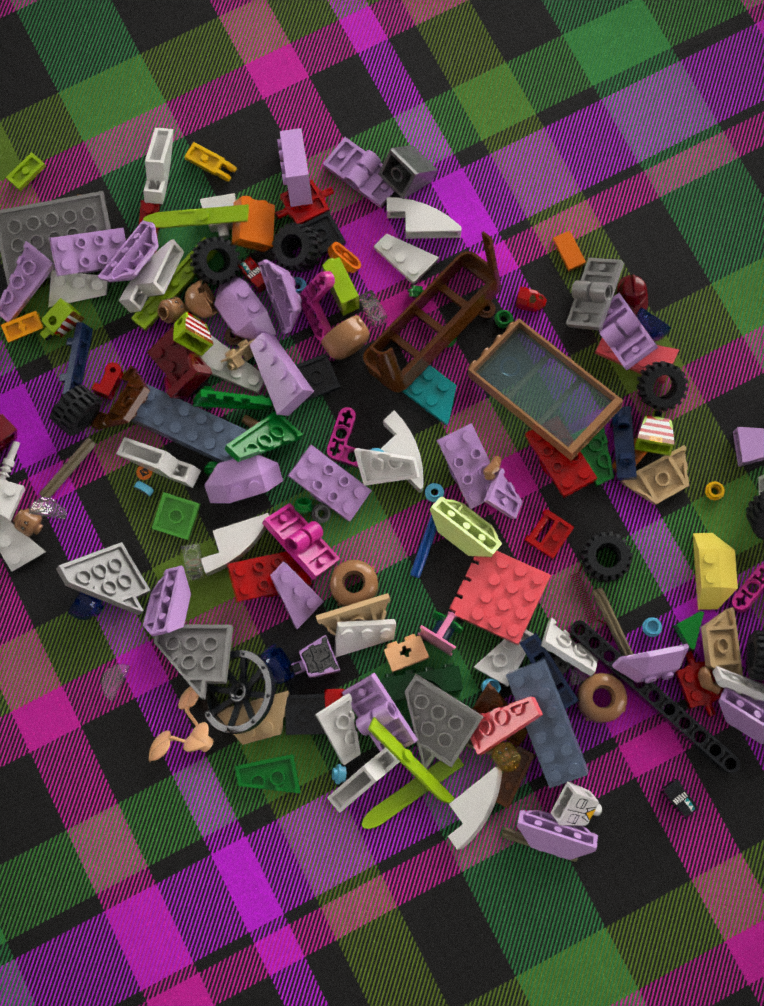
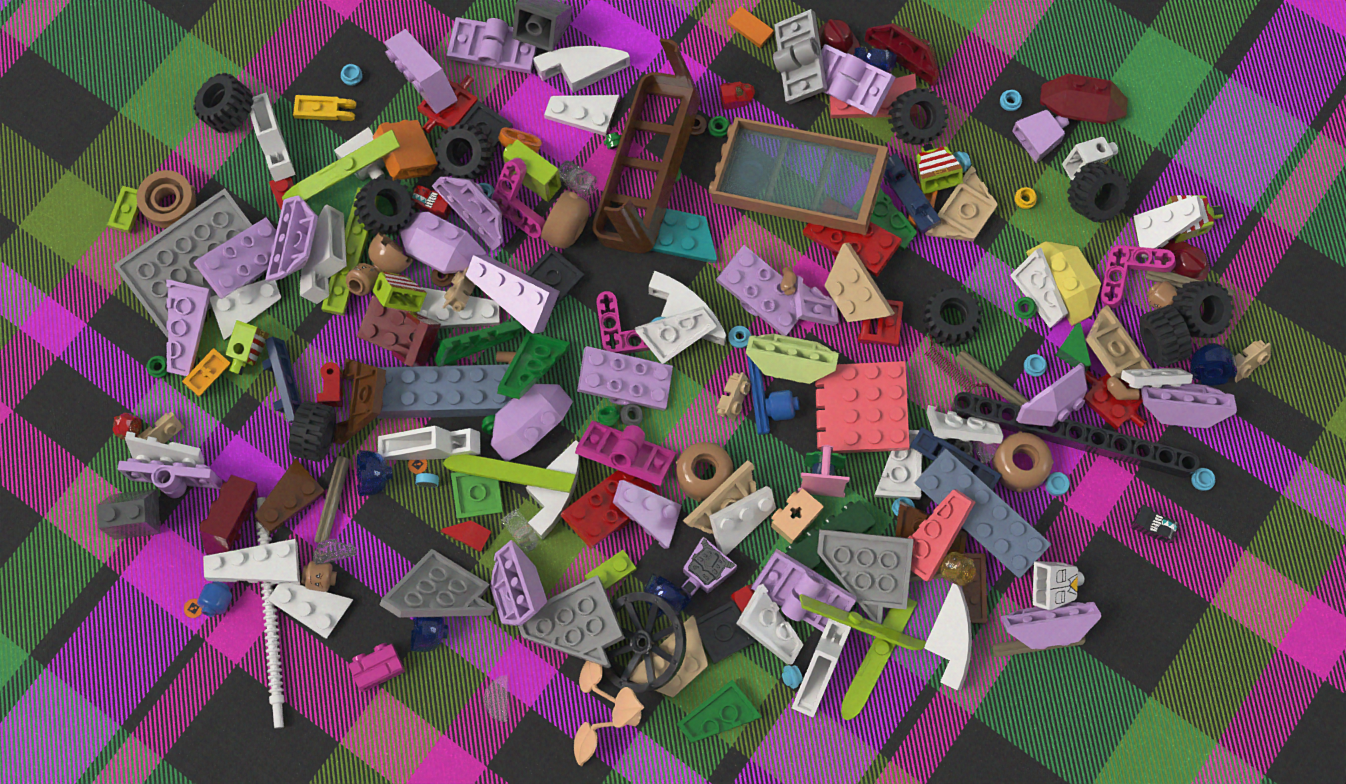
camera: 25 degrees left, 5 degrees down
(36, 452) = (288, 498): none -> reddish brown wing
(36, 611) = (376, 667): none -> dark pink brick
(54, 166) = (159, 186): none -> medium nougat piece
(105, 463) = (371, 472): none -> clear blue cylinder
(135, 122) = (223, 103): none -> black tyre
(154, 544) = (469, 534): none -> red slope
(207, 514) = (510, 472): none -> lime piece
(244, 145) = (351, 74): none -> medium azure plate
(247, 625) = (613, 570): none -> lime plate
(400, 543) = (738, 386): none -> tan hinge
(438, 562) = (782, 405): none -> blue head
(541, 499) = (855, 289): none -> tan wing
(620, 728) = (1057, 484): none -> medium azure tile
(672, 573) = (1025, 301): none -> green plate
(679, 437) = (963, 160): none -> medium azure plate
(684, 329) = (912, 52): none -> dark red wedge
(687, 568) = (1038, 283): none -> white wing
(737, 781) = (1203, 479): none -> medium azure plate
(748, 403) = (1013, 95): none -> medium azure plate

